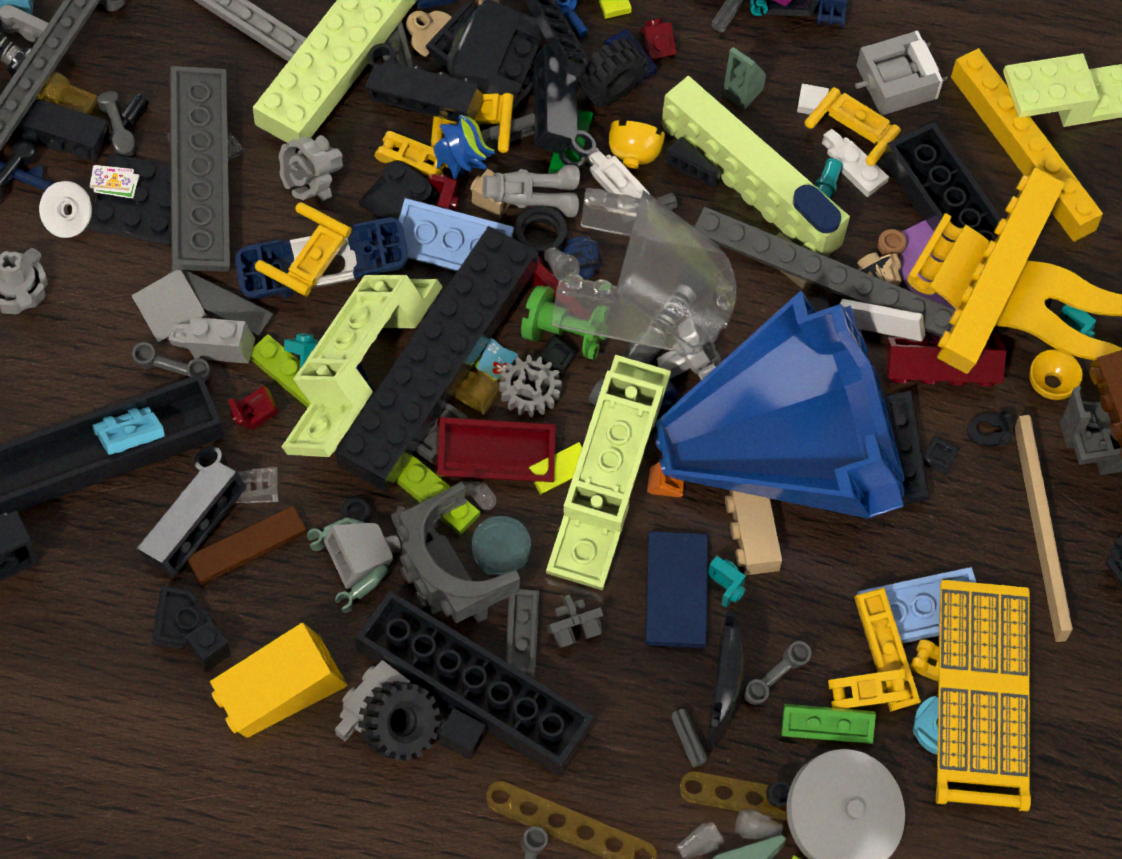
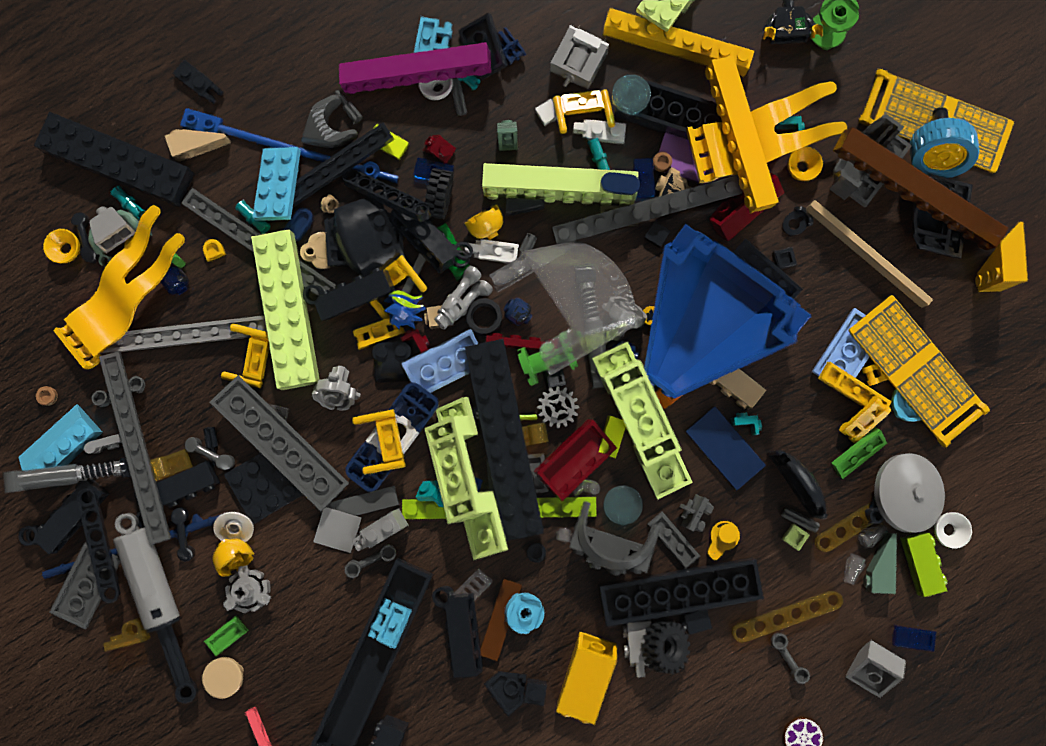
camera: 35 degrees left, 20 degrees up
(35, 229) = (231, 555): none -> yellow cylinder
(114, 181) = (242, 489): white sticker -> none
(254, 409) = (435, 547): dark red bracket -> none
(261, 71) = (255, 358): none -> yellow plate
(263, 550) = (516, 605): none -> medium azure plate
(358, 554) = (562, 577): light grey torso -> none
(495, 359) = (527, 408): medium azure sticker -> none
(561, 263) = (516, 328): clear cone -> none
(579, 678) = (722, 539): none -> yellow piece
(665, 752) = (795, 536): none -> yellowish green tile
(794, 657) = (812, 431): dark grey bar -> none
(857, 244) = (645, 176): none -> clear blue plate
(887, 320) = (698, 211): white tile -> none
(917, 140) = (631, 94): none -> clear light blue tile

